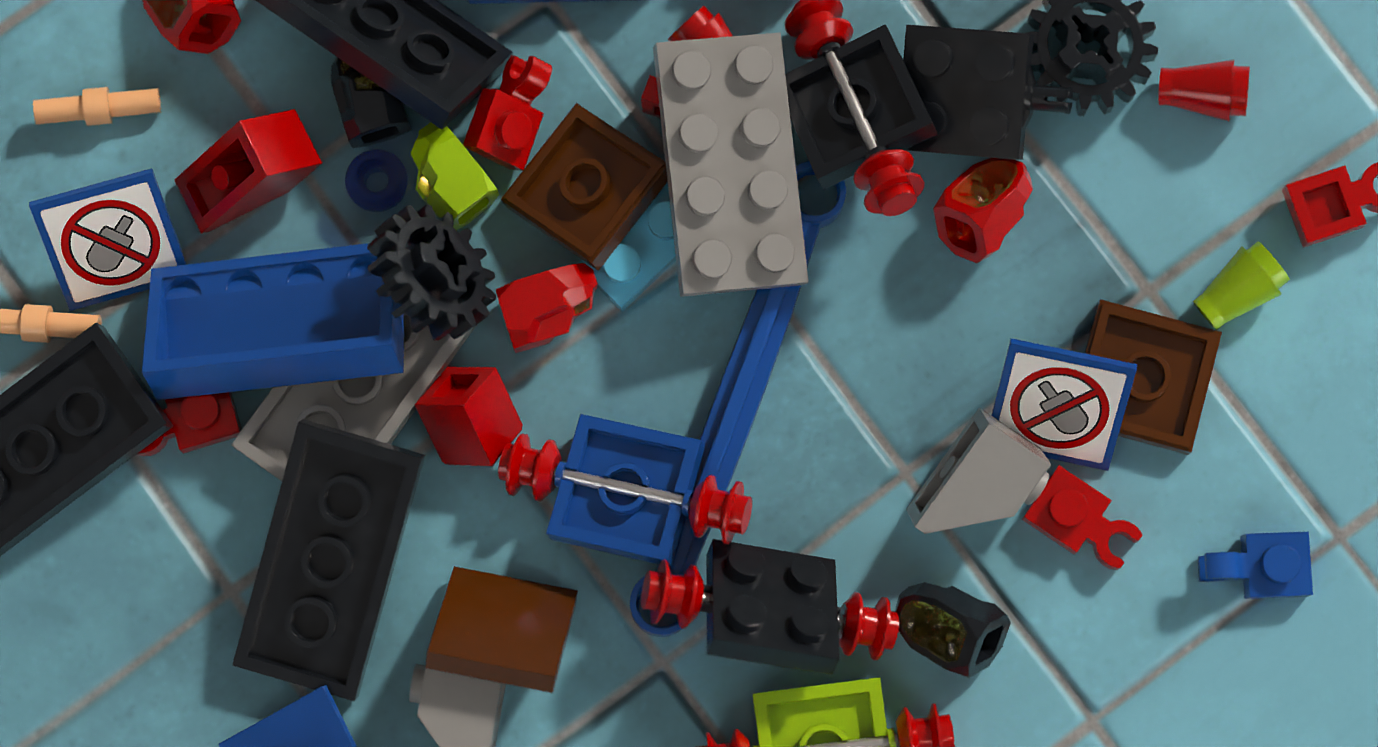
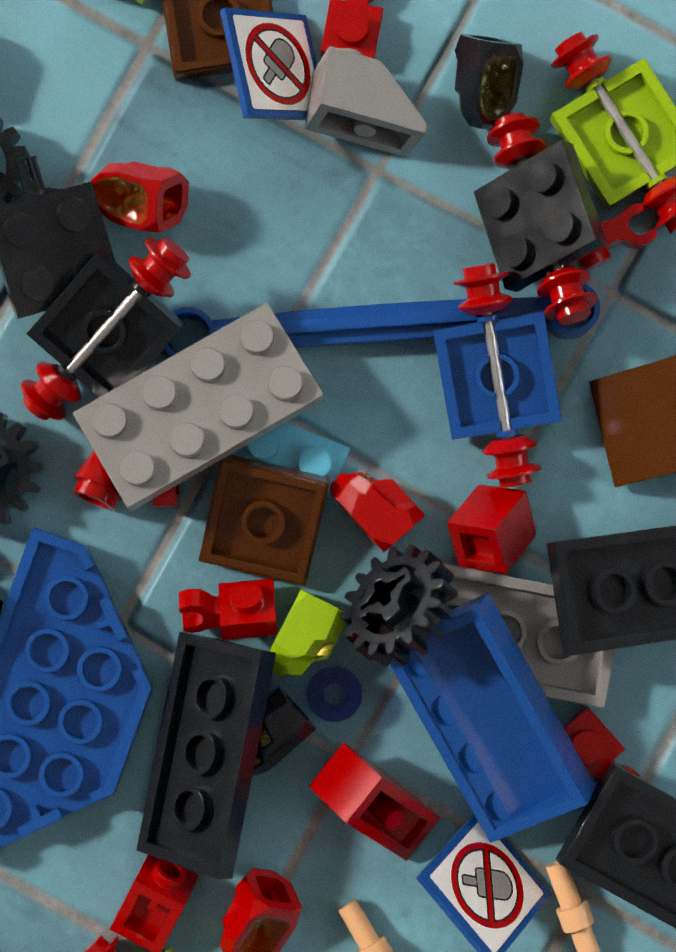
camera: 120 degrees left, 5 degrees up
(722, 684) = (616, 232): none -> red plate

